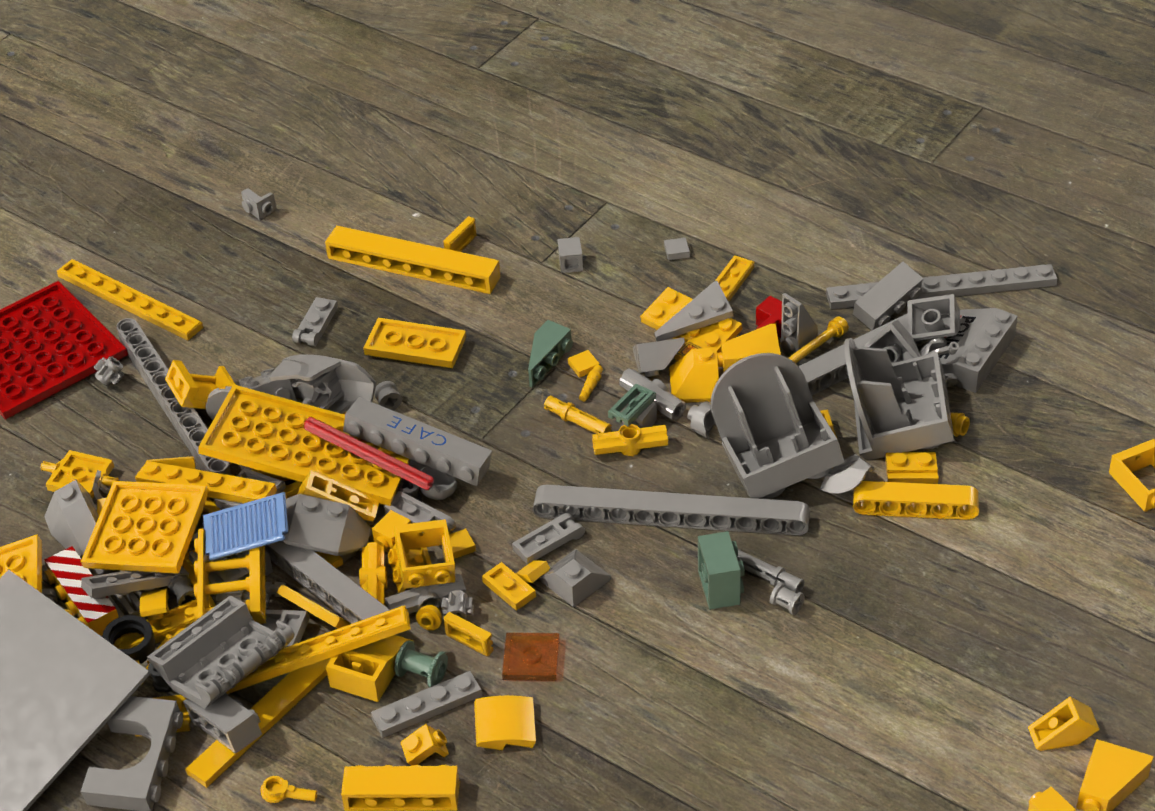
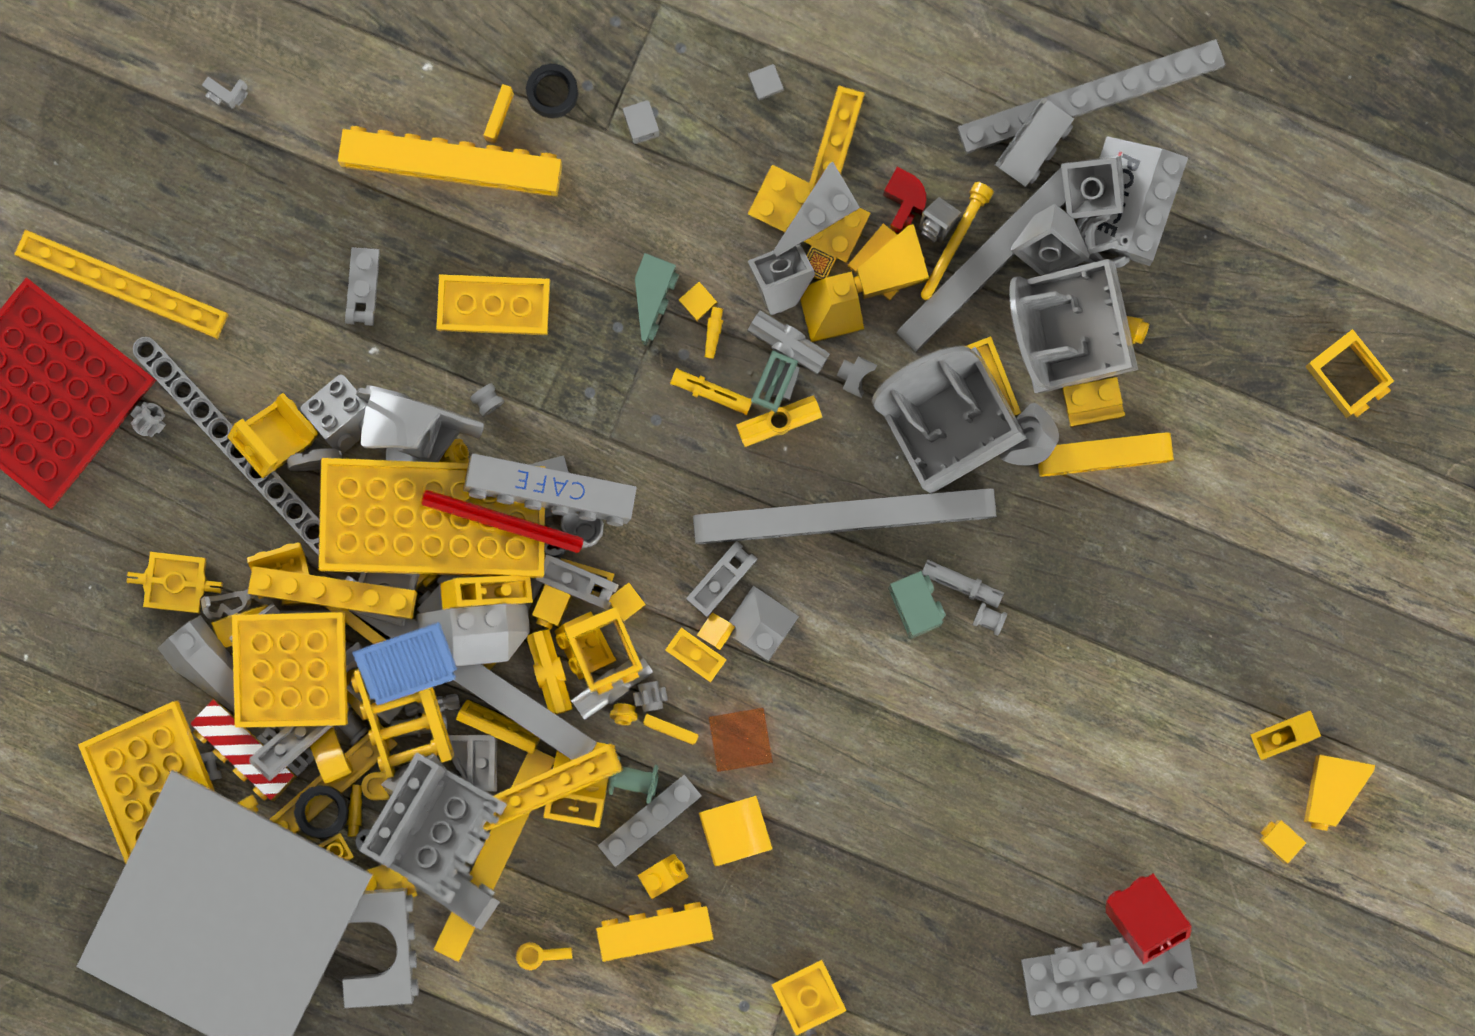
camera: 15 degrees left, 40 degrees up
(504, 221) = (548, 70): none -> black tyre

